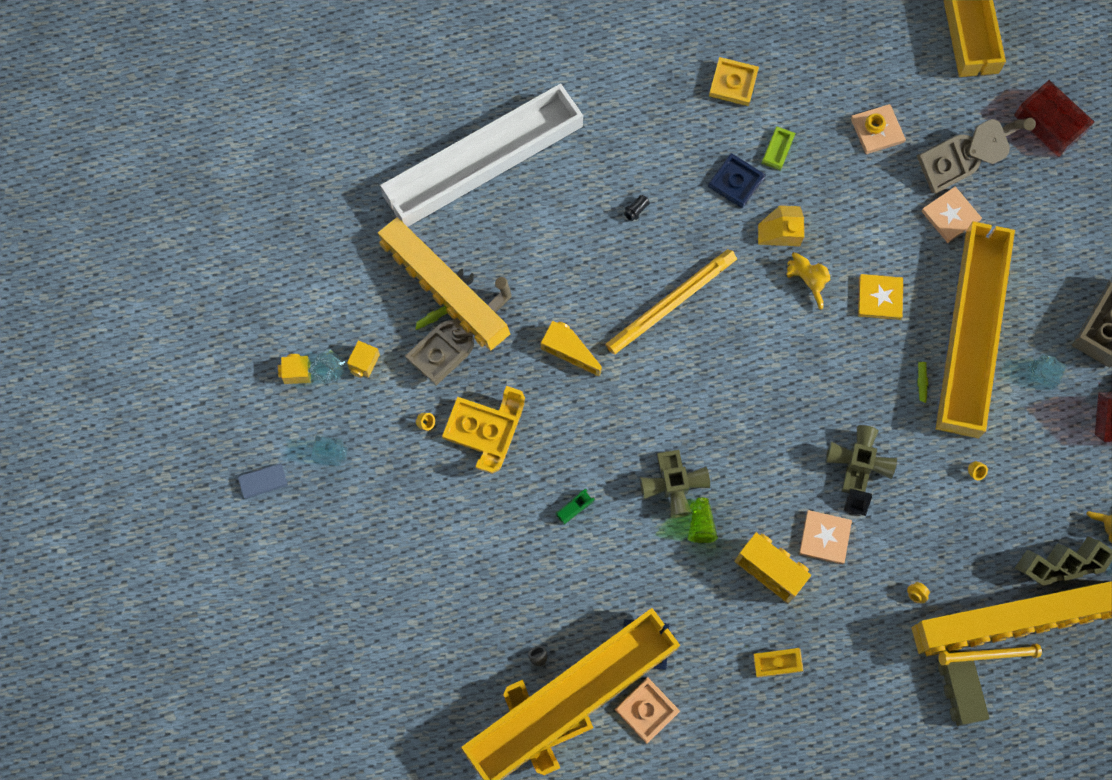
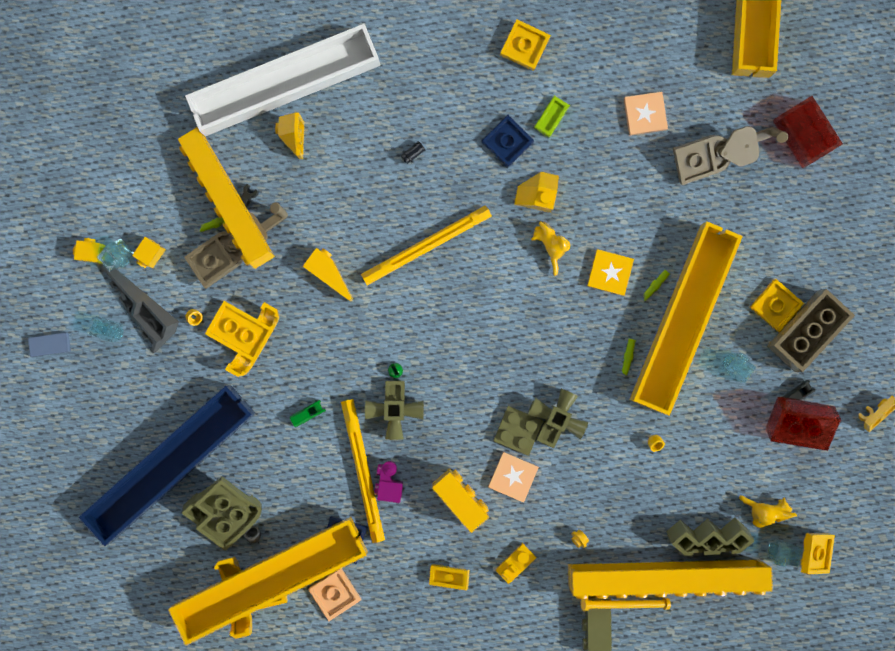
camera: 10 degrees right, 15 degrees up
(377, 431) = (150, 316): none -> dark grey wedge
(424, 590) = (167, 465): none -> dark blue piece
(499, 632) = (222, 512): none -> olive slope
(501, 207) = (291, 132): none -> yellow slope
(651, 560) = (362, 470): none -> yellow piece
(662, 444) = (399, 368): none -> green hinge
(684, 573) = (387, 488): none -> magenta brick
(702, 524) = (411, 446): clear neon green piece -> none
(819, 484) = (518, 430): none -> olive plate
(851, 636) = (515, 563): none -> yellow plate
(857, 502) = (547, 453): black tile -> none
(879, 120) = (645, 104): yellow plate -> none
(933, 301) = (656, 284): none -> lime piece
(951, 214) = (691, 206): light nougat tile -> none
(1070, 301) = (776, 305): none -> yellow tile

